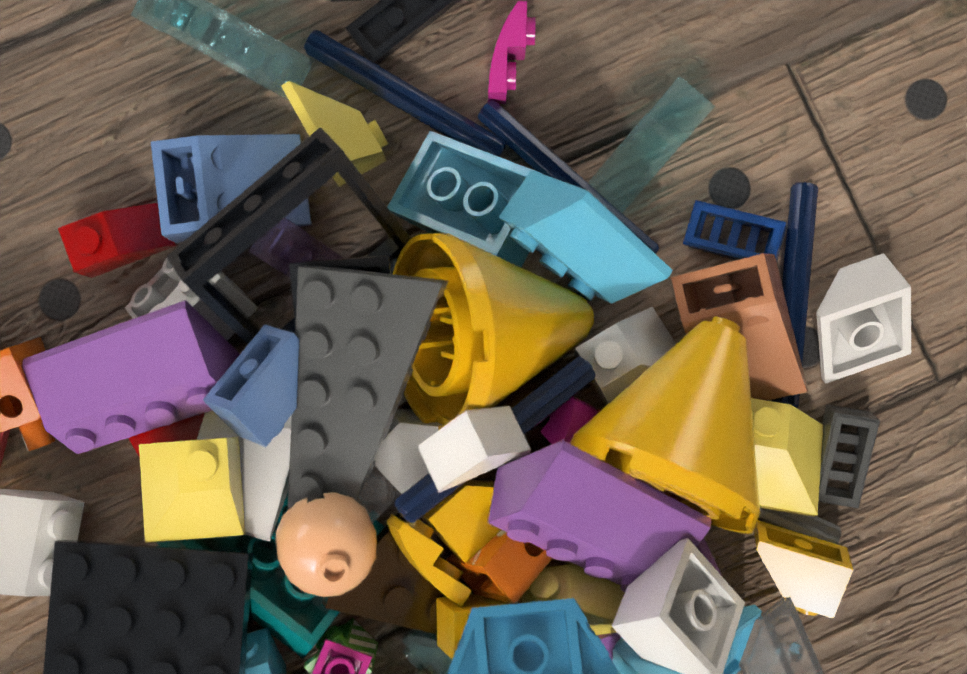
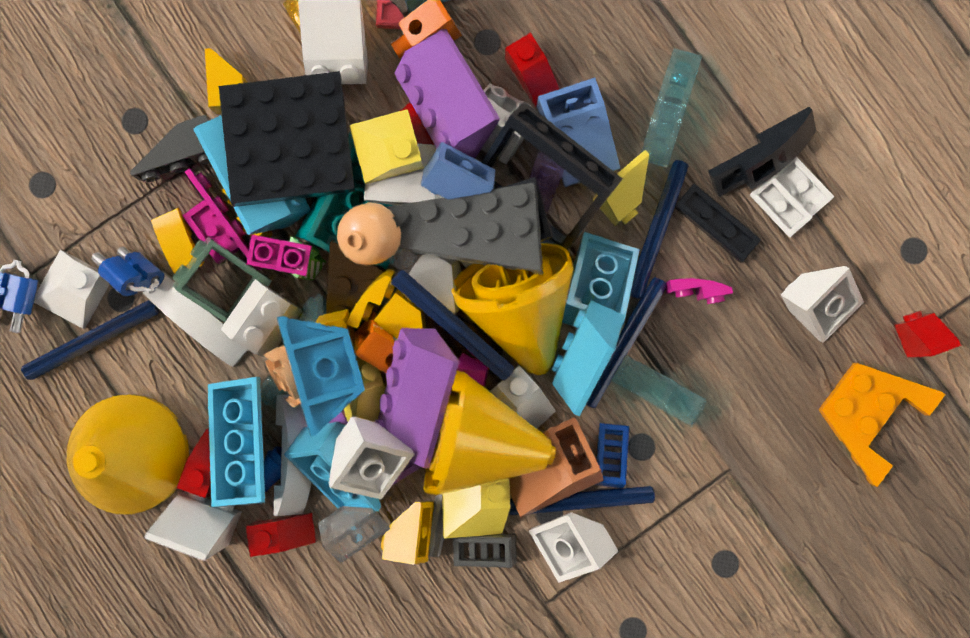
camera: 80 degrees right, 0 degrees up
(473, 446) = (445, 310): white slope -> none

